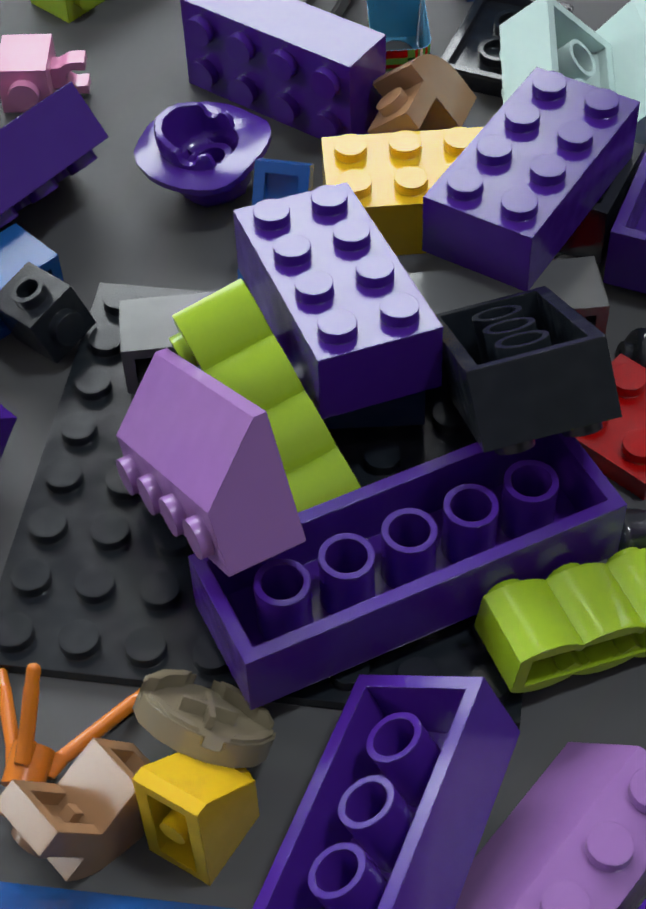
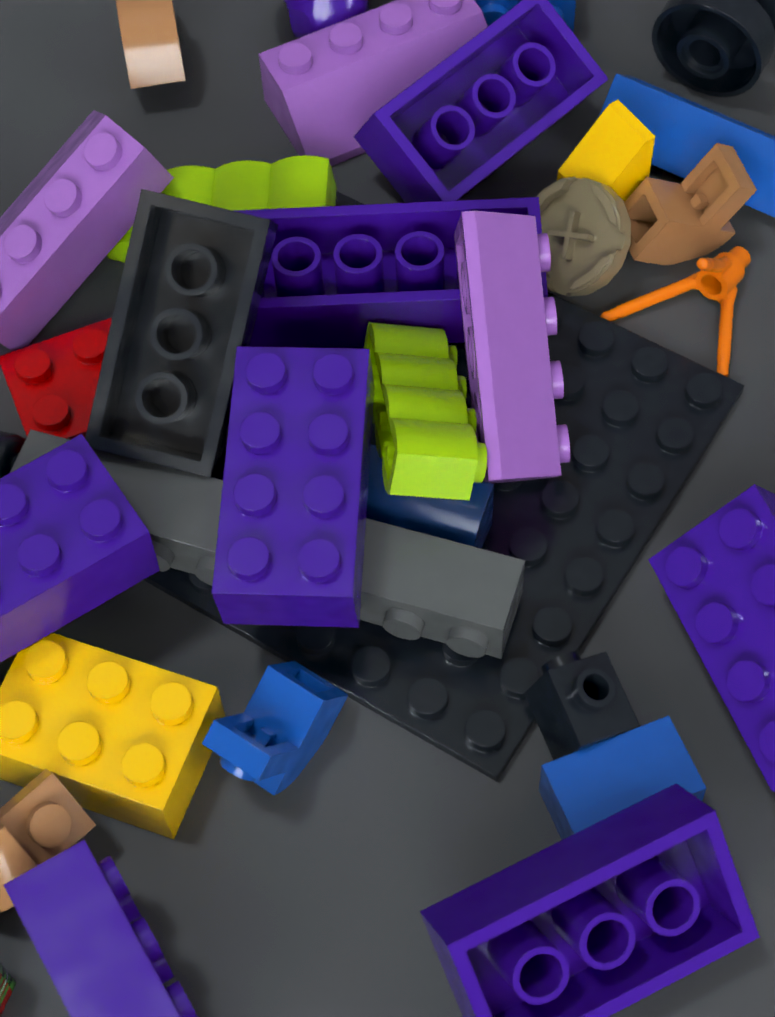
camera: 155 degrees left, 10 degrees up
(203, 150) = (302, 880): dark purple hat -> none

